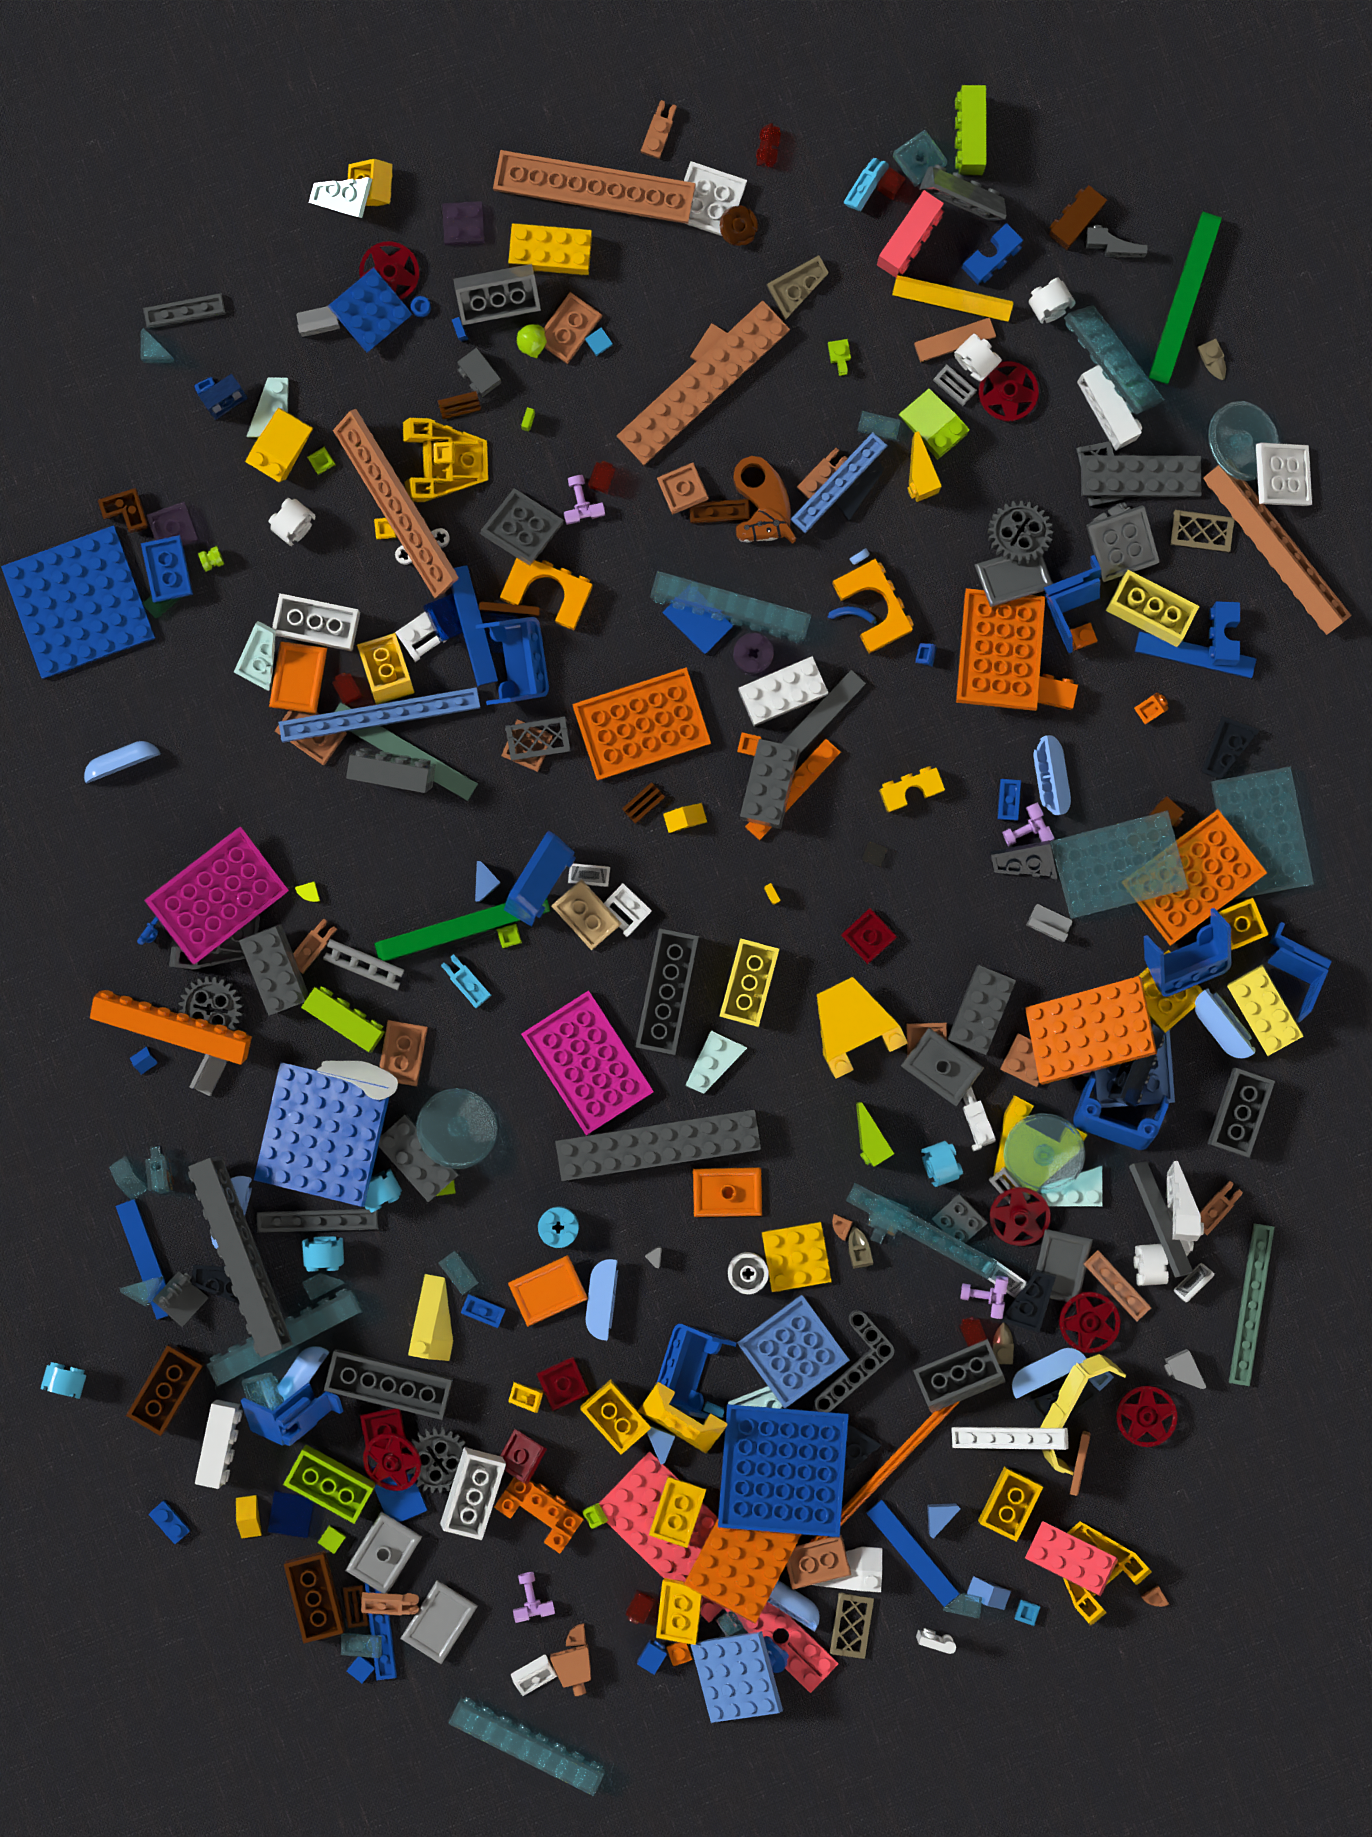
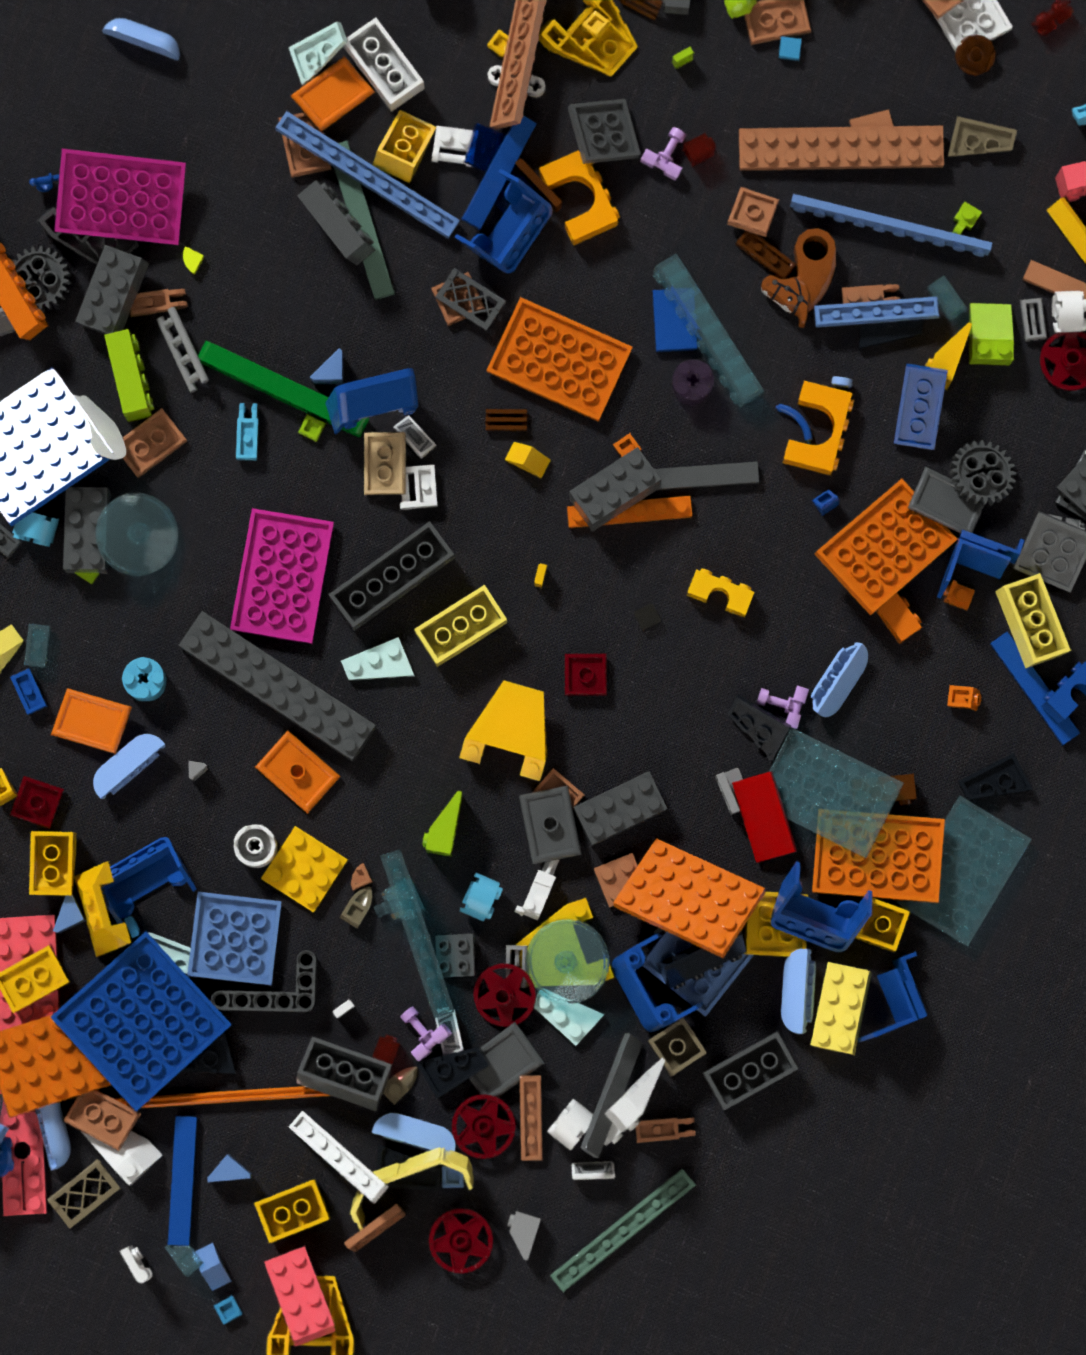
camera: 45 degrees right, 5 degrees down
(347, 688) = (361, 134): clear red brick -> none
(783, 413) = (883, 223): none -> medium blue plate
(783, 691) = (689, 430): white brick -> none
(915, 1330) = (343, 1009): none -> white tile
(934, 524) = (920, 406): none -> blue tile
(1009, 799) = (788, 668): blue plate -> none
(1088, 922) = (764, 816): none -> red tile
(1175, 1143) = (677, 1046): none -> dark tan brick

